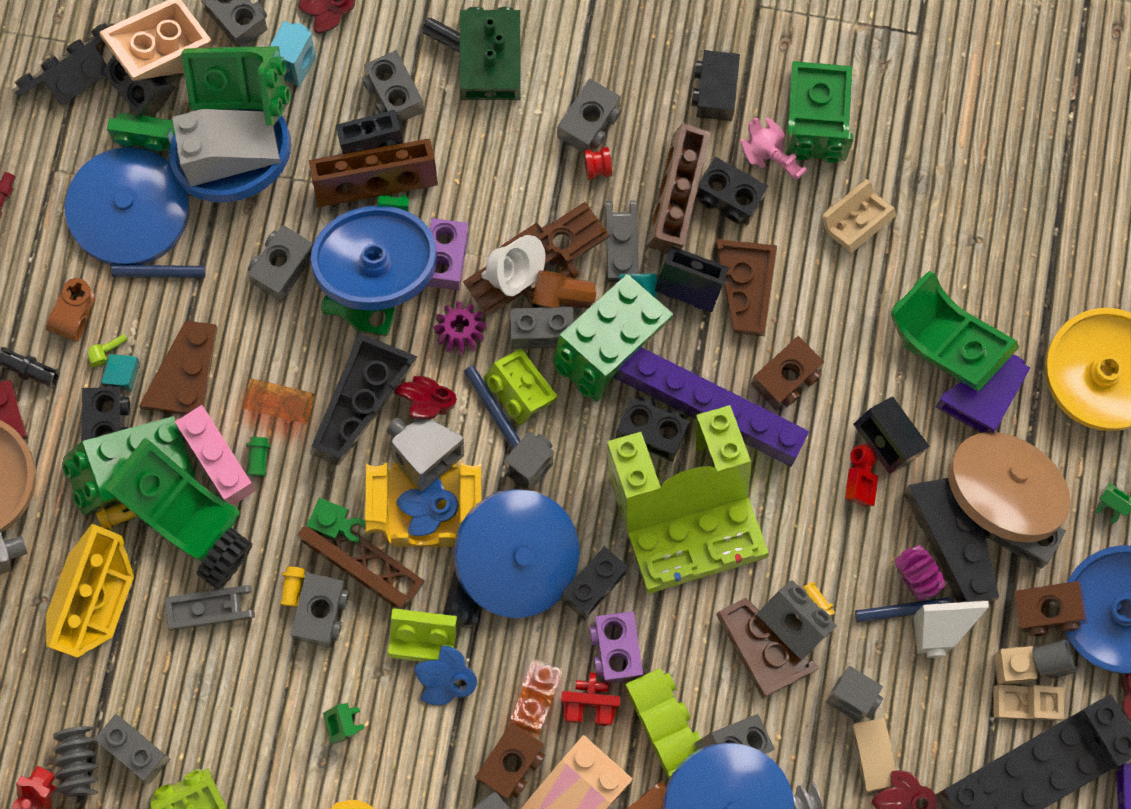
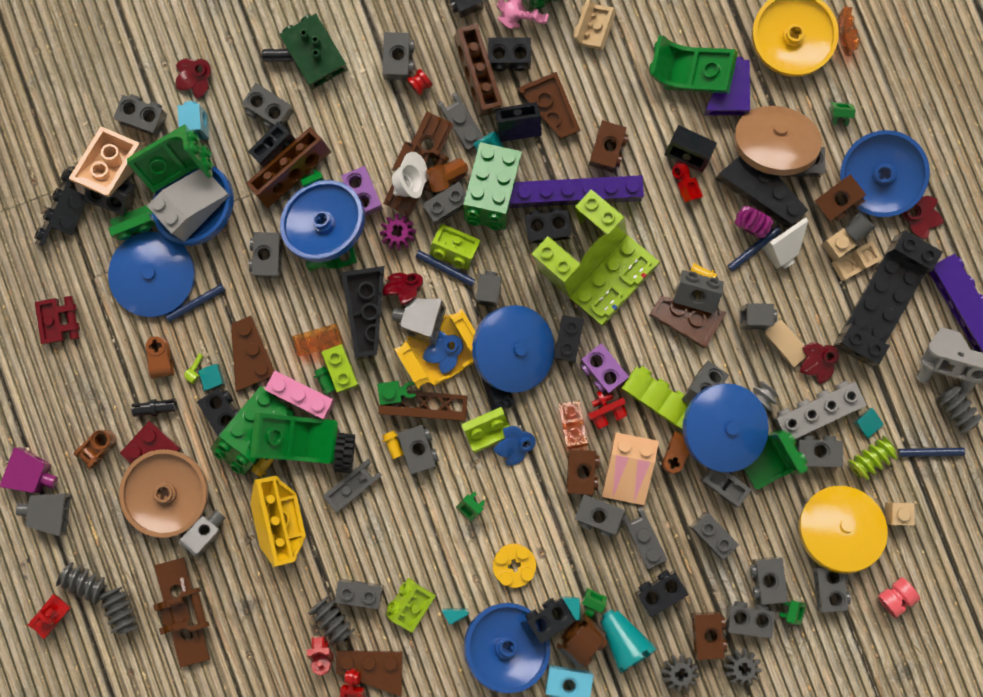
camera: 25 degrees left, 10 degrees up
(285, 453) = (340, 368): none -> lime brick

